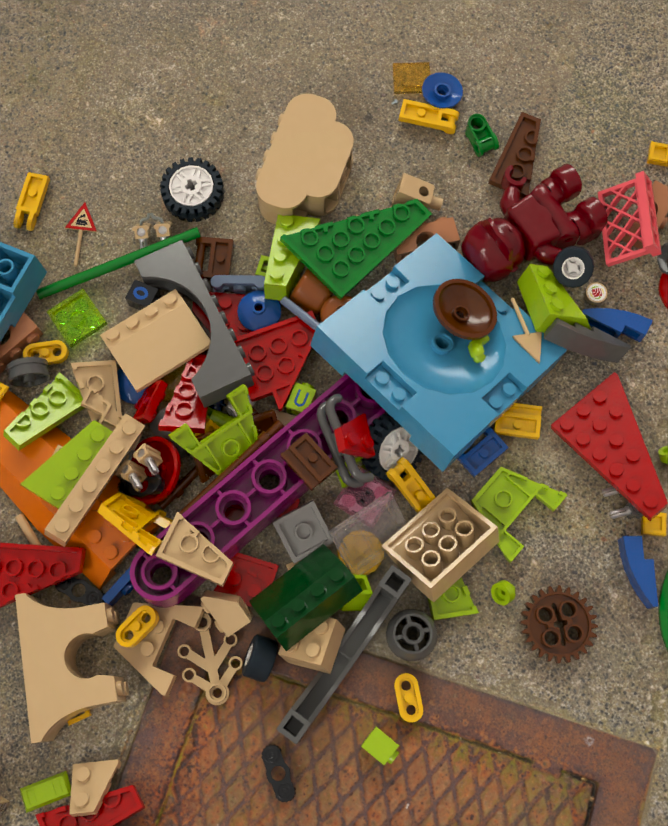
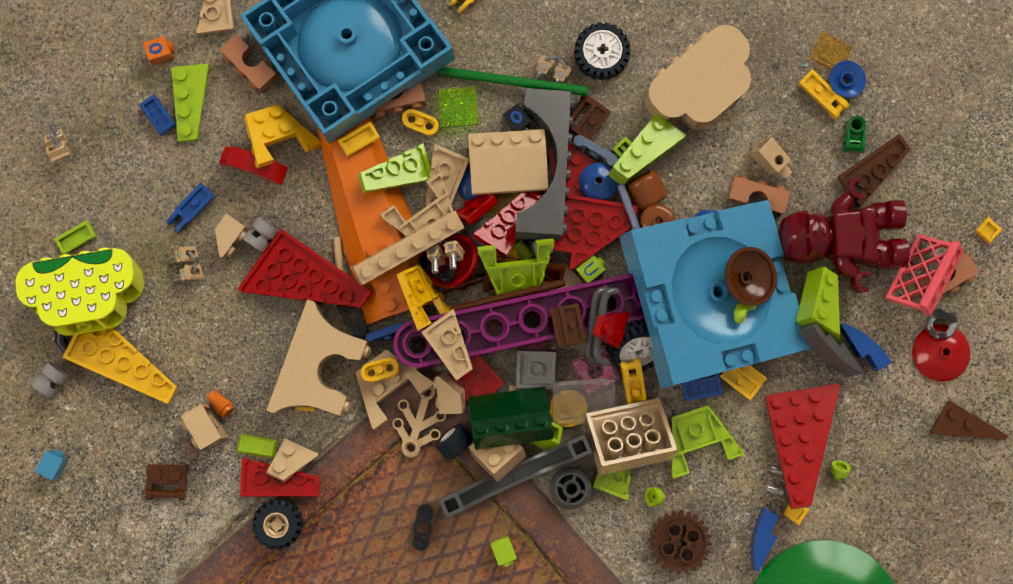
camera: 25 degrees right, 10 degrees up
(28, 372) = (400, 131): dark grey wheel -> none
(63, 470) = (389, 227): lime wing -> none
(83, 222) = (503, 29): piece -> none
(352, 248) = (695, 175): green wing -> none
(409, 697) = (542, 529): yellow plate -> none
(529, 341) = (786, 327): tan piece -> none
(570, 273) = (851, 294): black wheel -> none
(595, 293) = (864, 314): tile -> none

